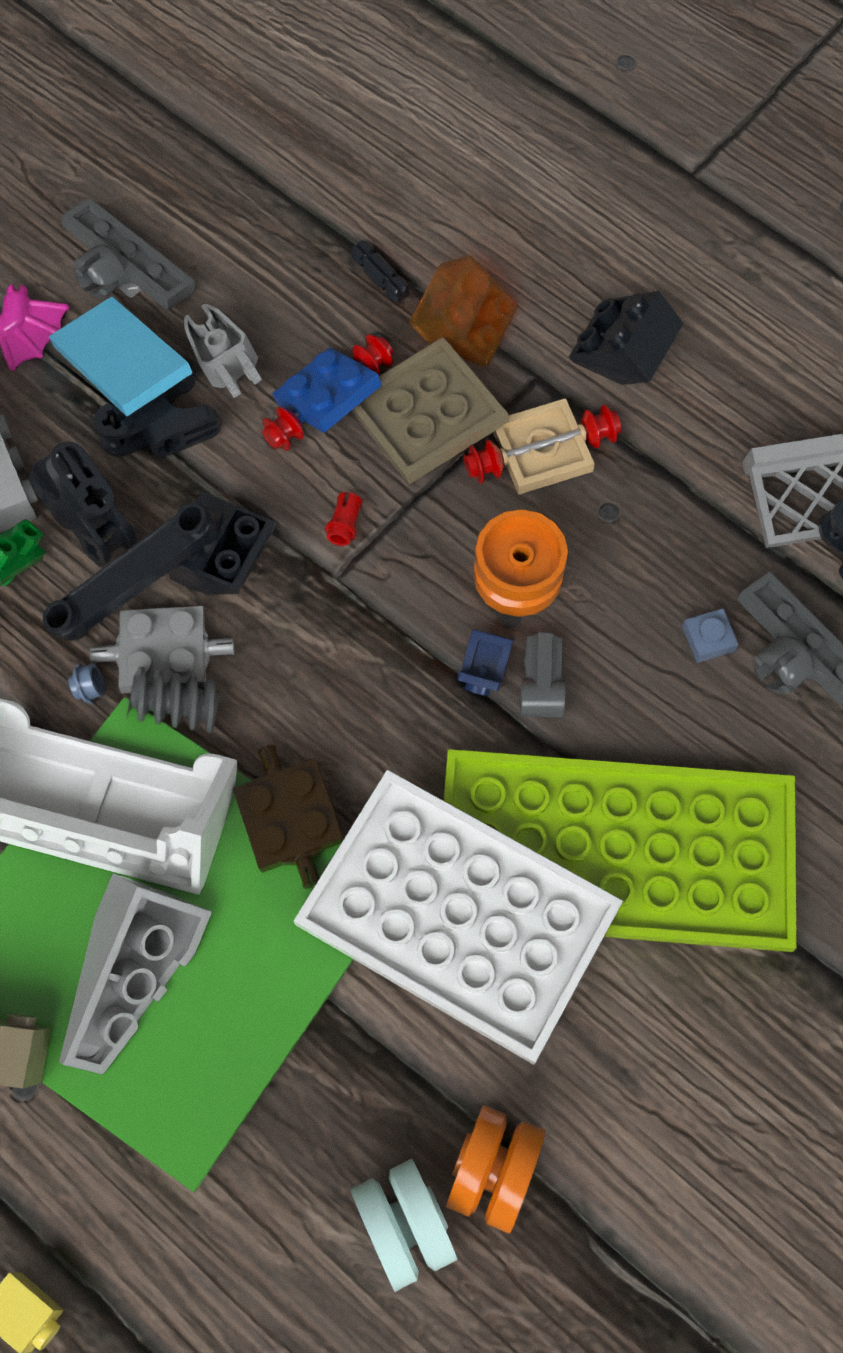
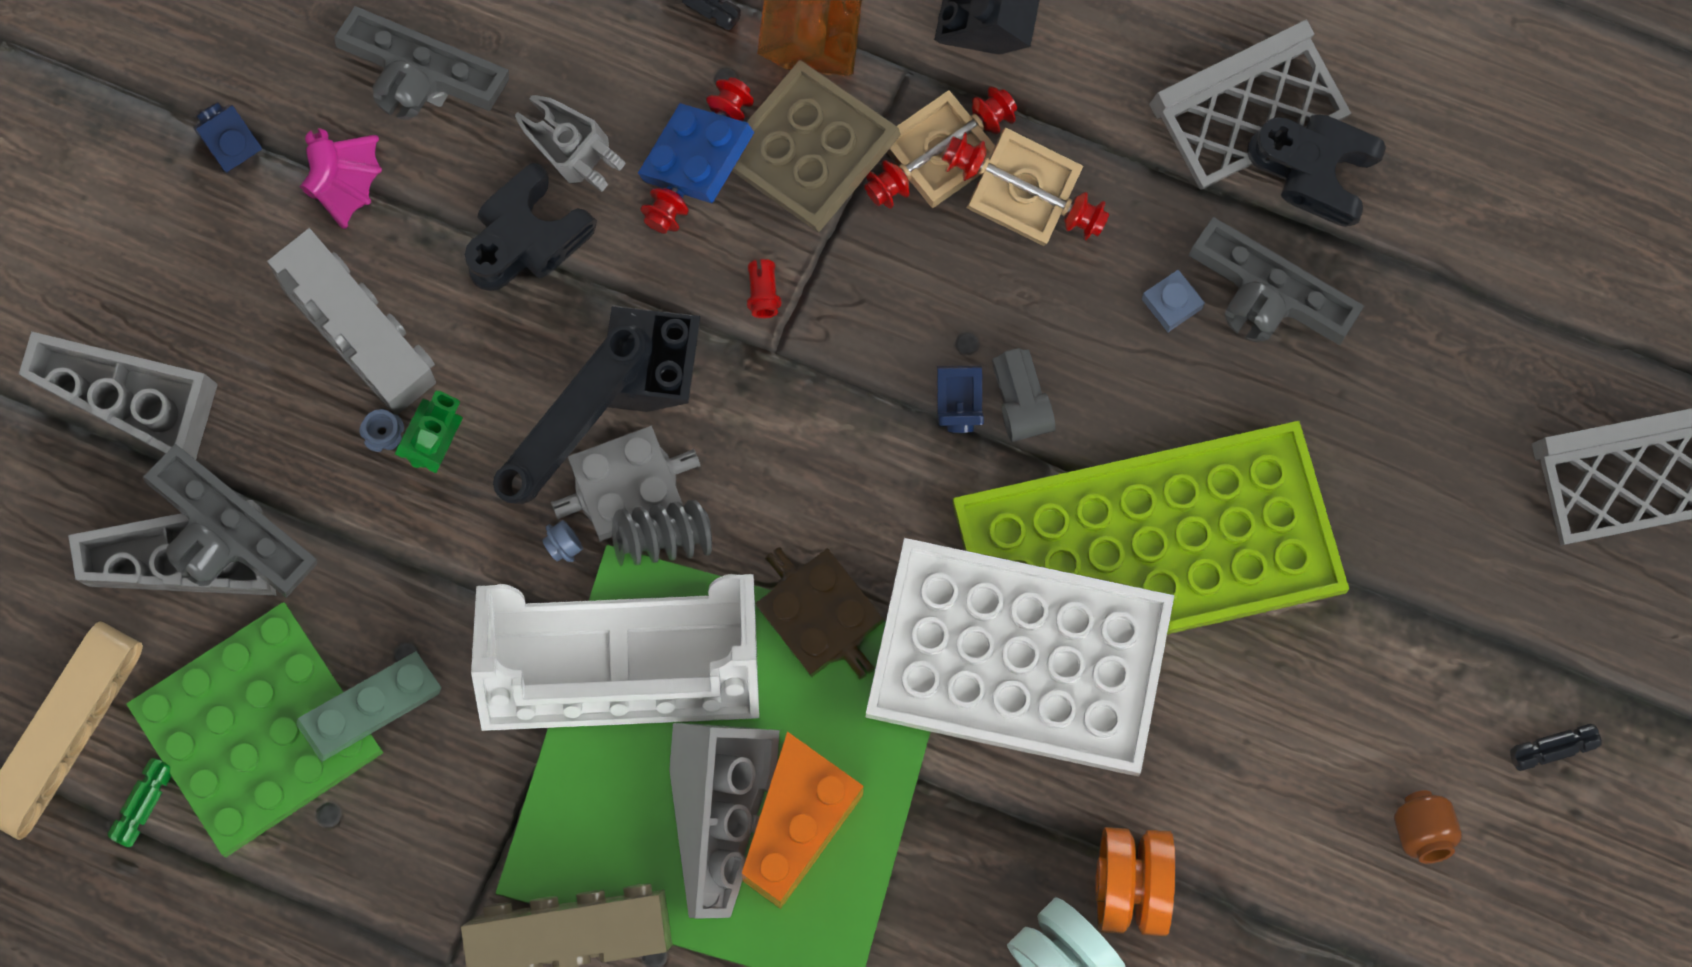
camera: 20 degrees left, 5 degrees up
(81, 501) = (488, 351): black piece -> none
(120, 355) = (463, 180): medium azure tile -> none
(192, 1003) = (798, 819): none -> orange wedge
(520, 562) = (962, 284): orange wheel -> none
(605, 496) = (1025, 186): none -> tan plate
(806, 1209) = (1427, 827): none -> dark orange head

